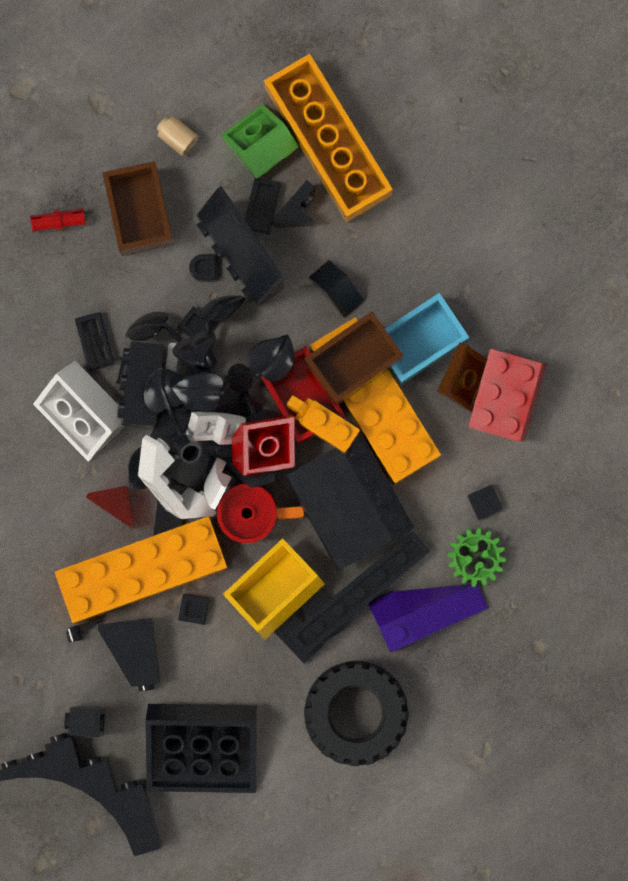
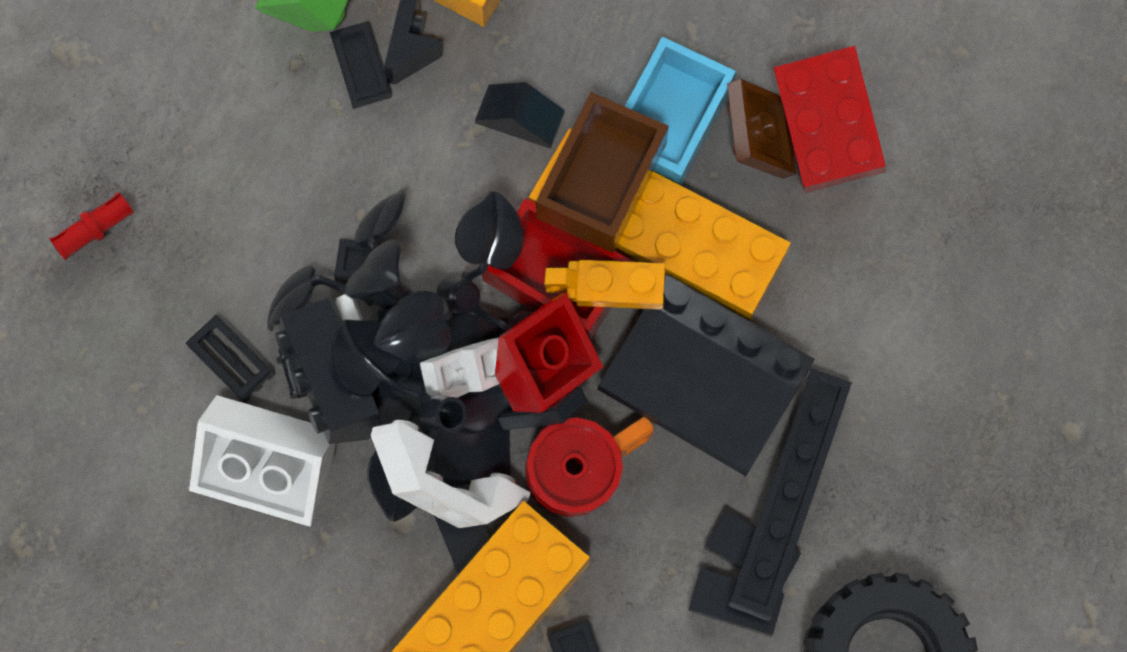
camera: 30 degrees left, 10 degrees down
(115, 502) = (379, 560): clear red slope -> none
(138, 208) = (194, 149): reddish brown piece -> none
(177, 135) = (196, 33): tan brick -> none
(203, 268) = (327, 184): black tile -> none
(216, 483) = (509, 447): white slope -> none
(240, 248) = (362, 120): black slope -> none
(273, 589) = (672, 551): yellow piece -> none
(420, 612) = (885, 477): dark purple wedge -> none
(460, 562) = (933, 339): bright green gear -> none
(484, 502) = (882, 280): black tile -> none

